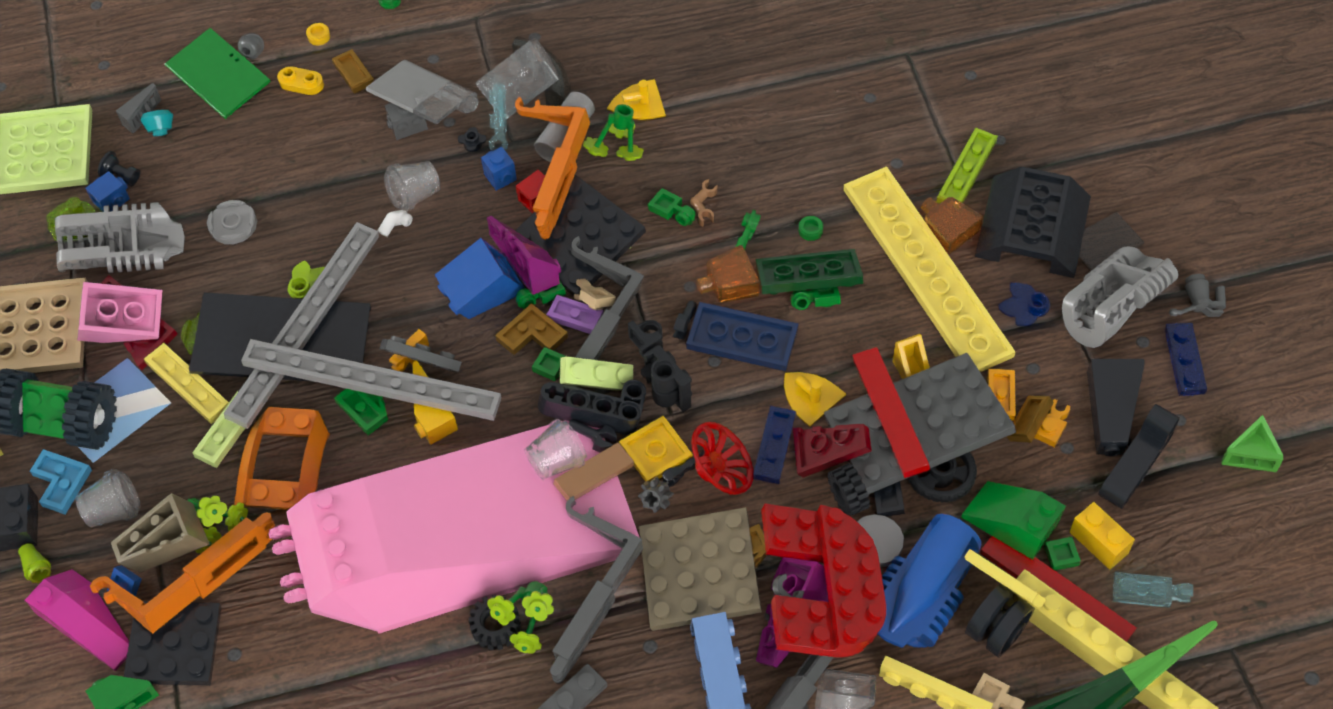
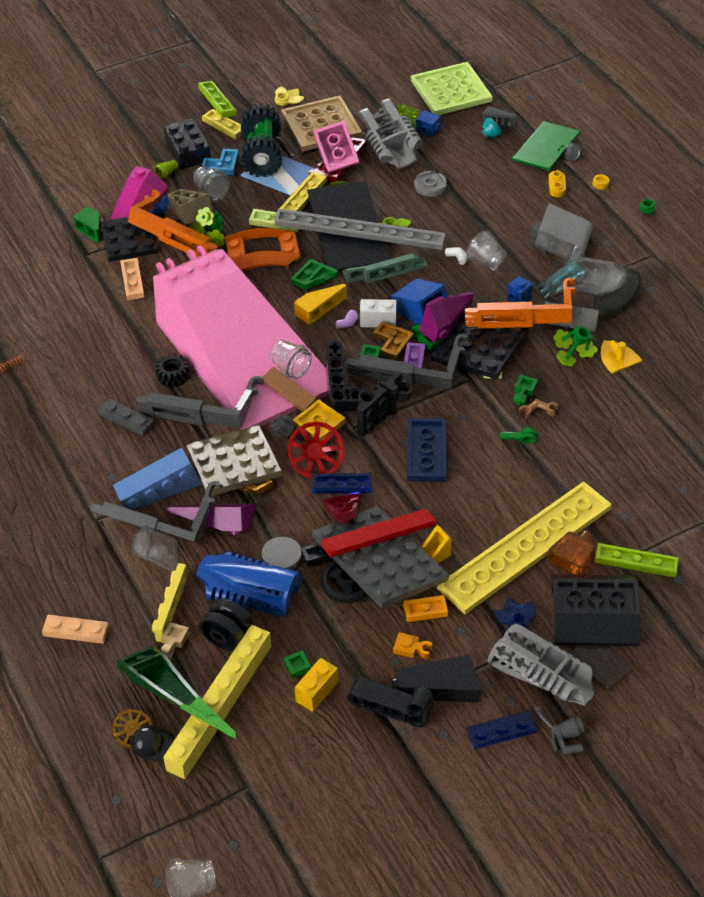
camera: 75 degrees right, 10 degrees down
(111, 163) = (448, 117): black piece -> none
(274, 651) = (132, 279): none -> light nougat plate
(352, 71) = (578, 204): pearl gold tile -> none
(372, 379) = (320, 266): light grey plate -> none
(384, 315) = (384, 269): none -> sand green wedge
(400, 362) = (358, 285): light orange plate -> none
(420, 353) = (349, 283): dark grey plate -> none
(469, 372) = (349, 320): none -> lavender arm
(472, 140) = (541, 275): black plate -> none
(478, 336) = (375, 311): none -> white piece
(537, 605) = (191, 381): lime plant -> none
(594, 373) = (360, 367): yellowish green plate -> none
(596, 298) = (427, 360): tan plate -> none
(596, 435) = (319, 384): black bar -> none
(683, 320) = (422, 411): black bar -> none
(730, 276) = (475, 432): clear orange torso -> none
(809, 271) = (493, 473): dark green plate -> none
(810, 228) = (539, 473): green tile -> none
(810, 395) = (392, 499): yellow shield -> none
(821, 297) = (477, 487): green plate -> none
(848, 489) = (308, 521): black tyre -> none
(852, 580) = (231, 530): red plate -> none
(1005, 579) = (253, 614): light yellow tile -> none
(1014, 564) = (267, 668): red tile -> none
(1015, 516) = (317, 629): green slope -> none
(1030, 418) = (408, 628): pearl gold tile -> none
(1149, 590) = (281, 724): clear light blue plate -> none
(1255, 449) = (424, 777): bright green slope -> none

